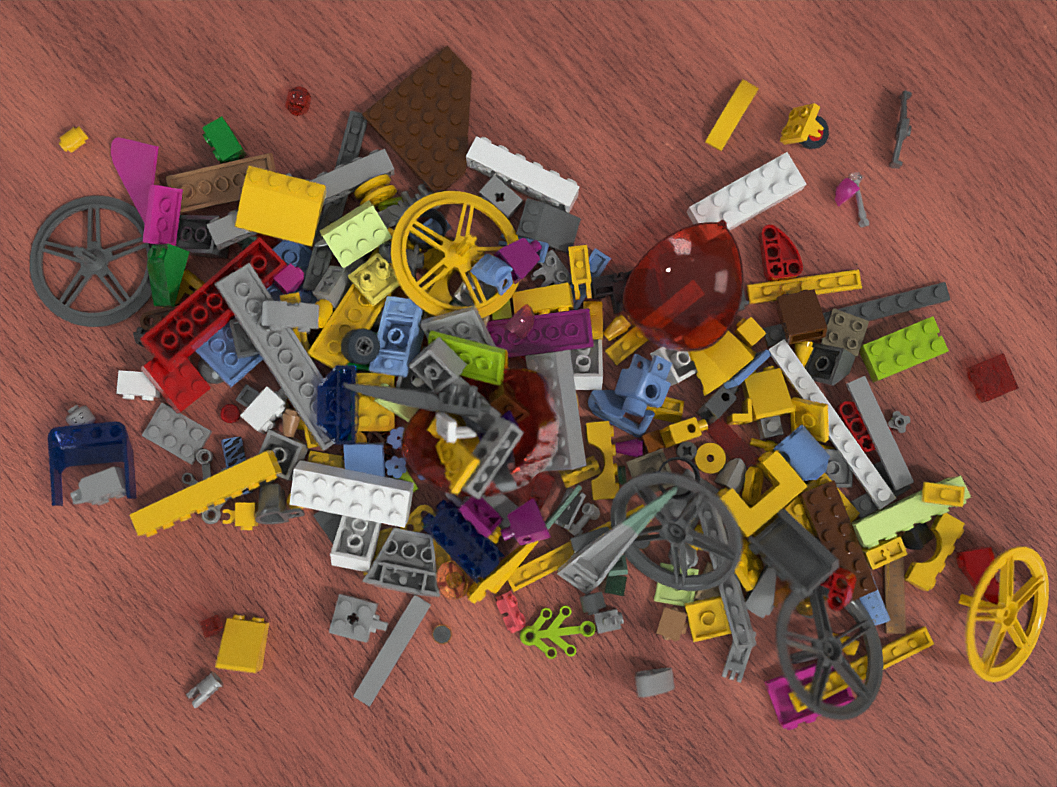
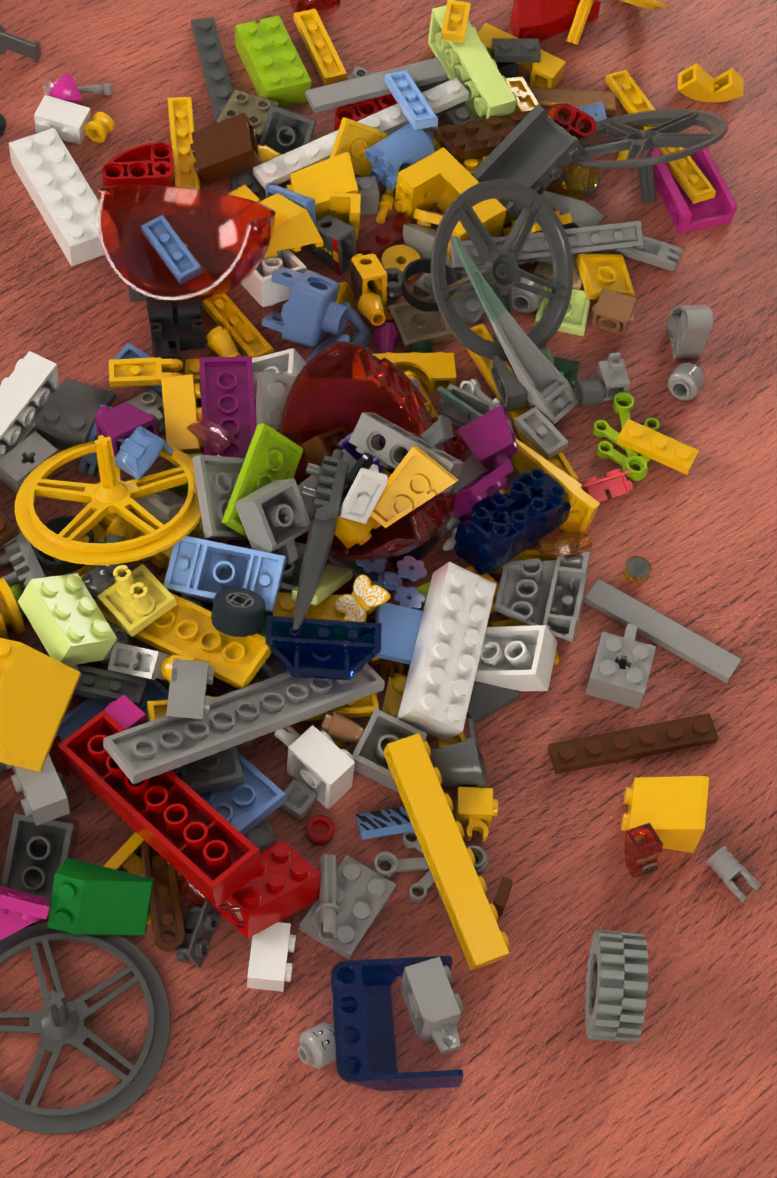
camera: 90 degrees left, 25 degrees down
(106, 603) = (616, 986): none -> light grey wheel
(174, 418) = (327, 908): none -> light grey axle
(181, 532) = (502, 895): none -> reddish brown tile
(302, 626) = (632, 743): none -> reddish brown plate
(379, 430) = (362, 600): none -> yellow animal
(547, 563) = (541, 433): none -> light grey plate
(547, 653) = (657, 446): none -> yellow plate
(609, 678) = (686, 381): none -> light grey head
(653, 435) = (372, 308): none -> yellow cone
(690, 281) = (171, 249): none -> medium blue tile
(820, 219) = (99, 127): none -> yellow wheel
(823, 191) = (64, 116): none -> white brick
(853, 459) = (411, 100): none -> light blue tile
(921, 713) = (700, 86): none -> yellow brick
(928, 387) = (320, 46): none -> yellow plate
(933, 548) = (516, 50): none -> dark grey plate

